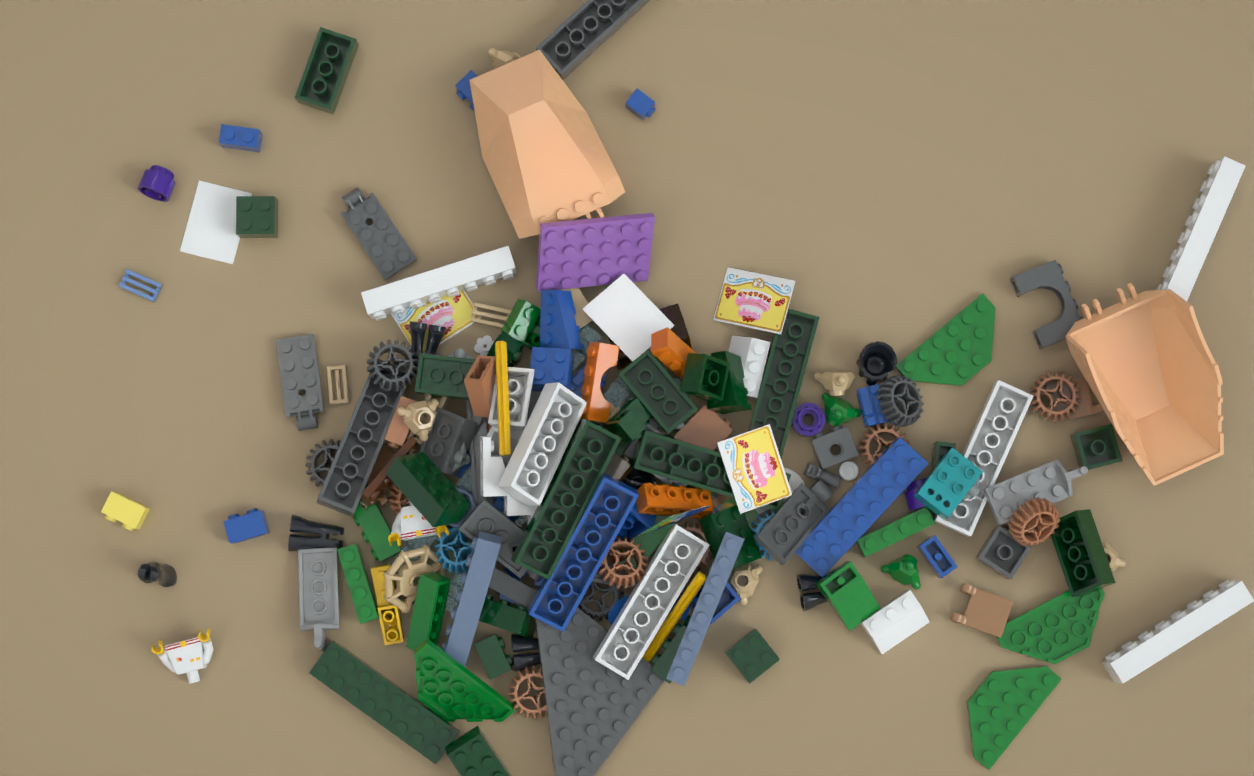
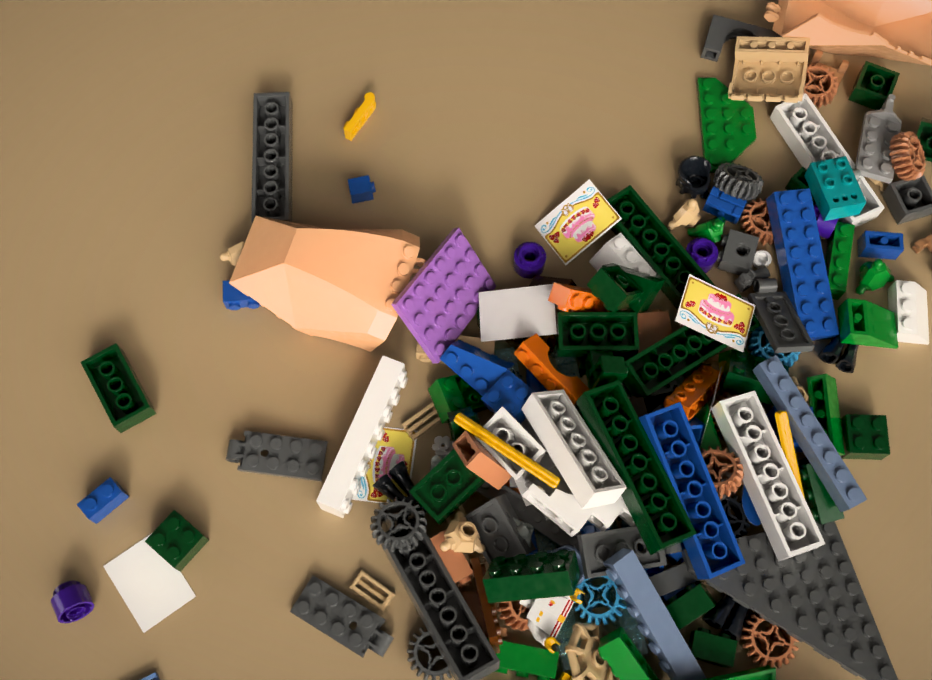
camera: 50 degrees left, 15 degrees down
(695, 279) = (526, 268): none -> dark purple piece
(705, 46) = (360, 116): none -> yellow plate
(745, 614) = (825, 405): none -> green brick
(1026, 351) = (769, 69): none -> tan slope

